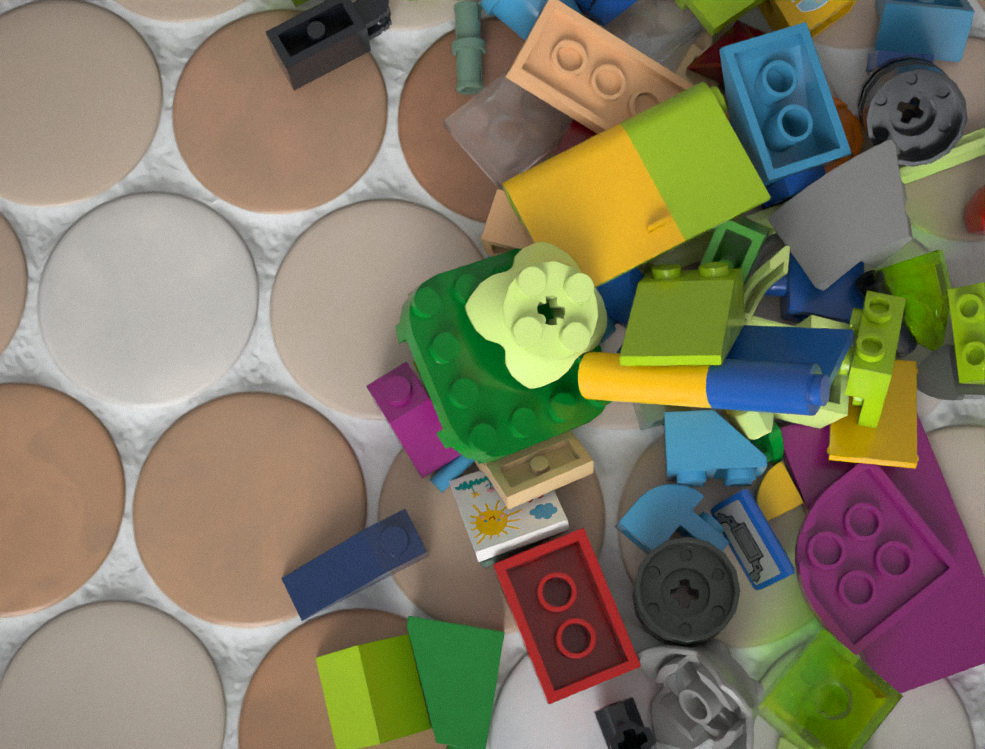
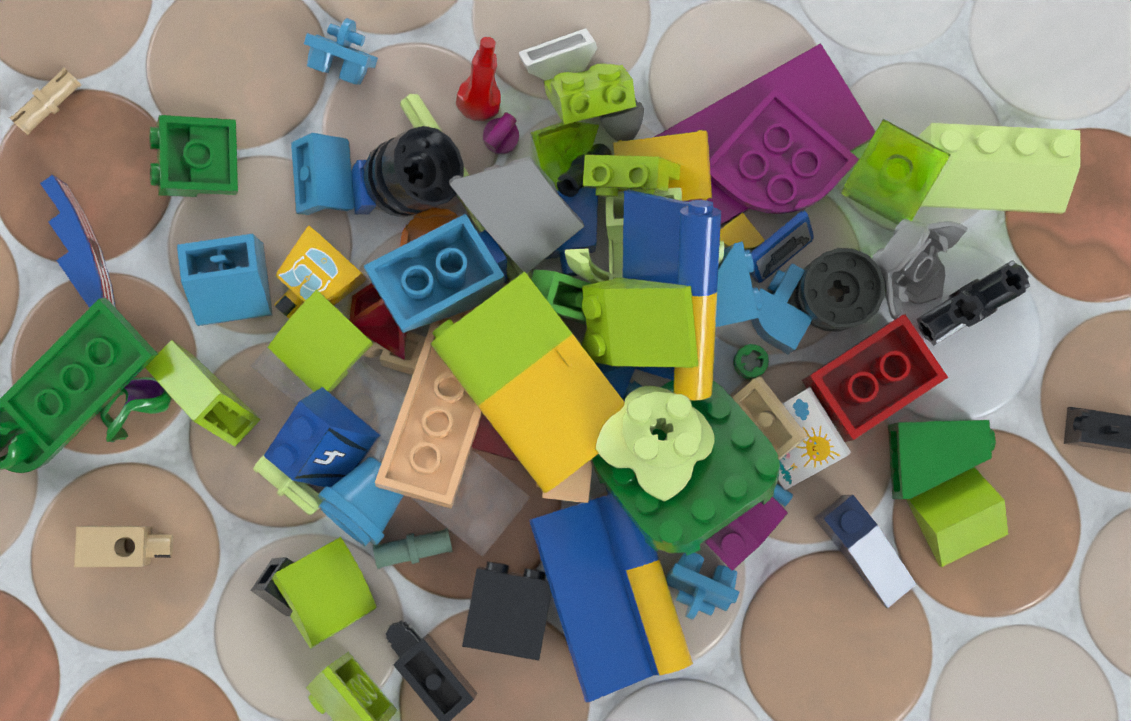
camera: 105 degrees left, 5 degrees up
(363, 243) = (609, 596): none -> blue door
(371, 341) = (700, 591): none -> dark azure hips
(375, 134) = (508, 611): none -> black piece
(628, 473) = (756, 371): none -> green bush
(942, 231) = (501, 134): none -> magenta plate

